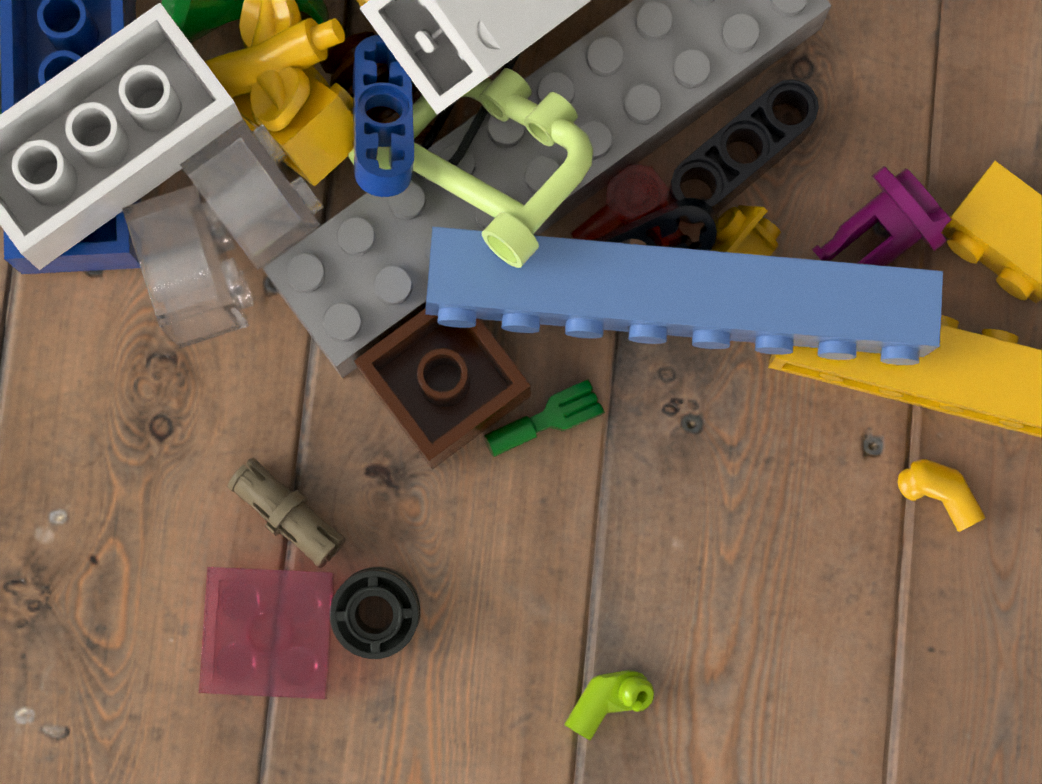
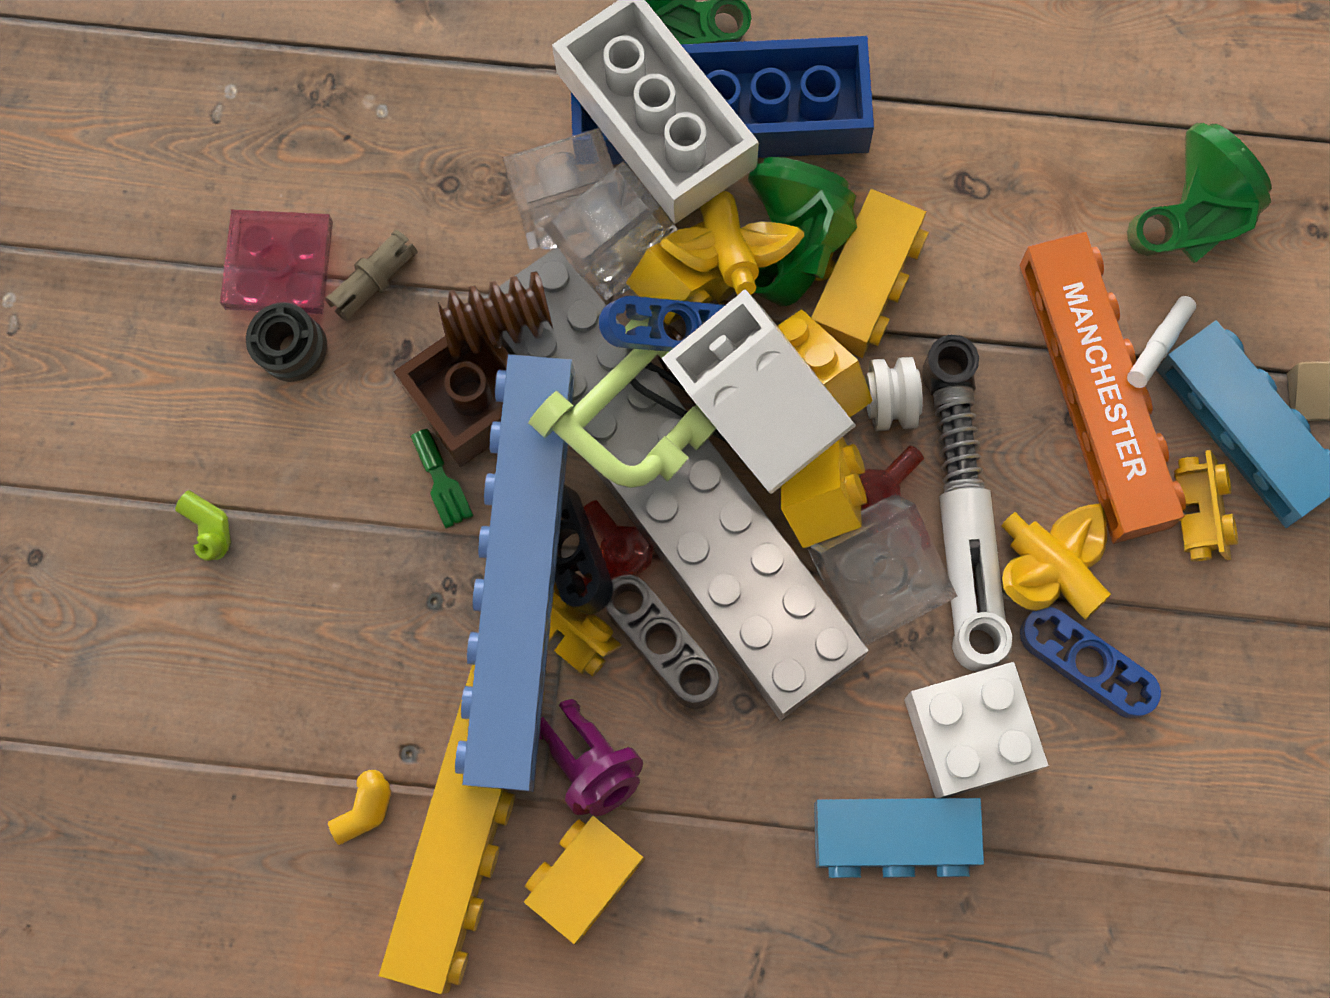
camera: 95 degrees right, 5 degrees down
(364, 325) = (495, 315): none -> reddish brown piece

